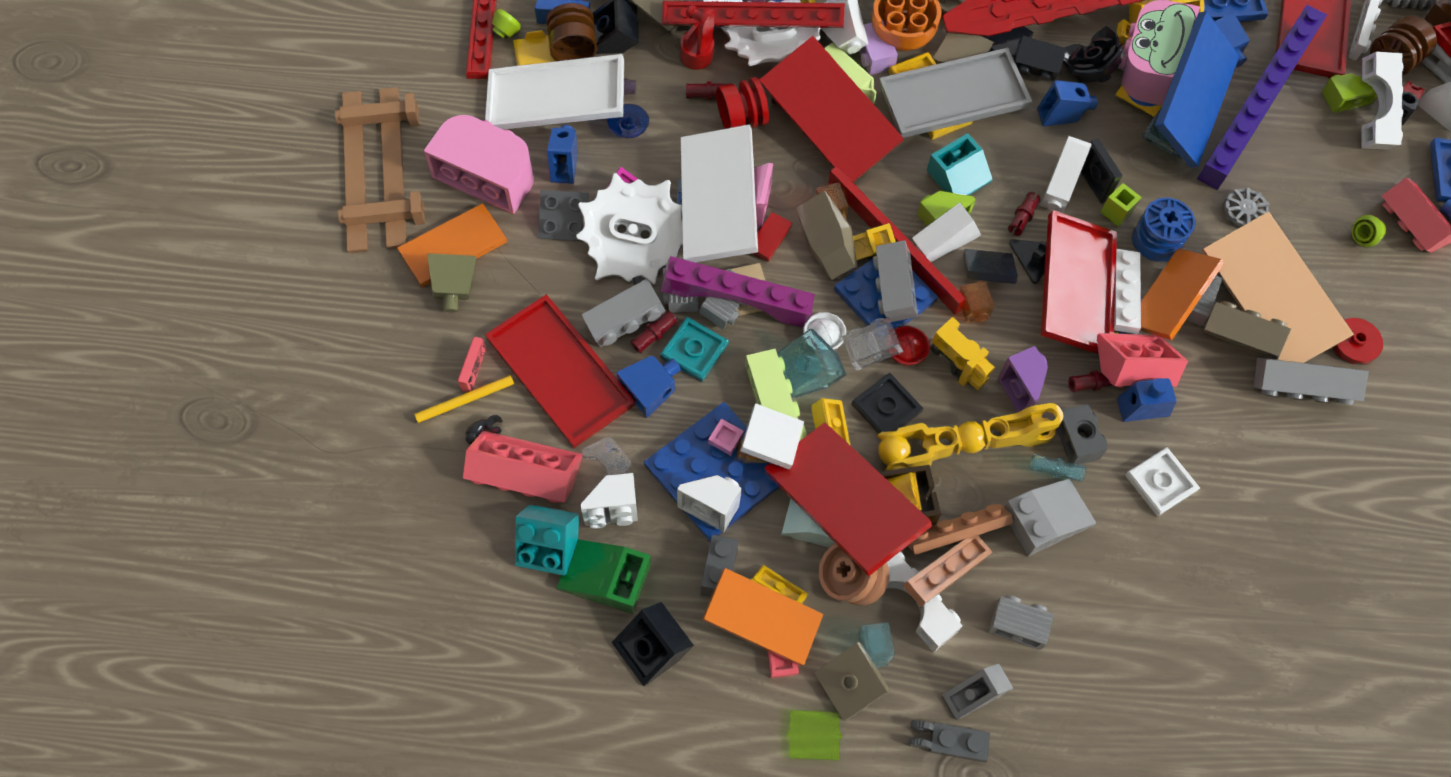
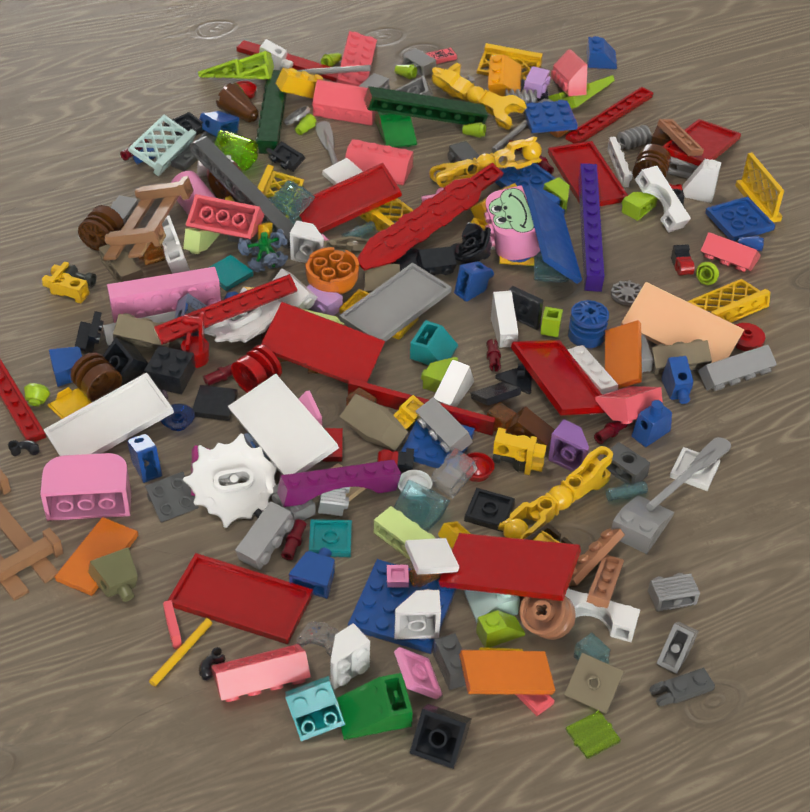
camera: 30 degrees left, 20 degrees down
(465, 81) = (15, 447): none -> black arm
(656, 59) = (171, 369): none -> black brick
(672, 562) = (418, 673): none -> bright pink tile
(679, 119) = (214, 401): none -> black tile
(796, 556) = (498, 628): none -> lime slope
(827, 296) = (403, 459): none -> leg
(996, 334) = (529, 424): none -> reddish brown brick
(1188, 475) = (710, 453): none -> light grey piece
(1221, 358) = (678, 379): none -> blue torso
(1258, 27) = (560, 189): none -> lime slope
(1349, 196) = (682, 260): none -> leg
(1372, 298) = (732, 309): none -> yellow fence

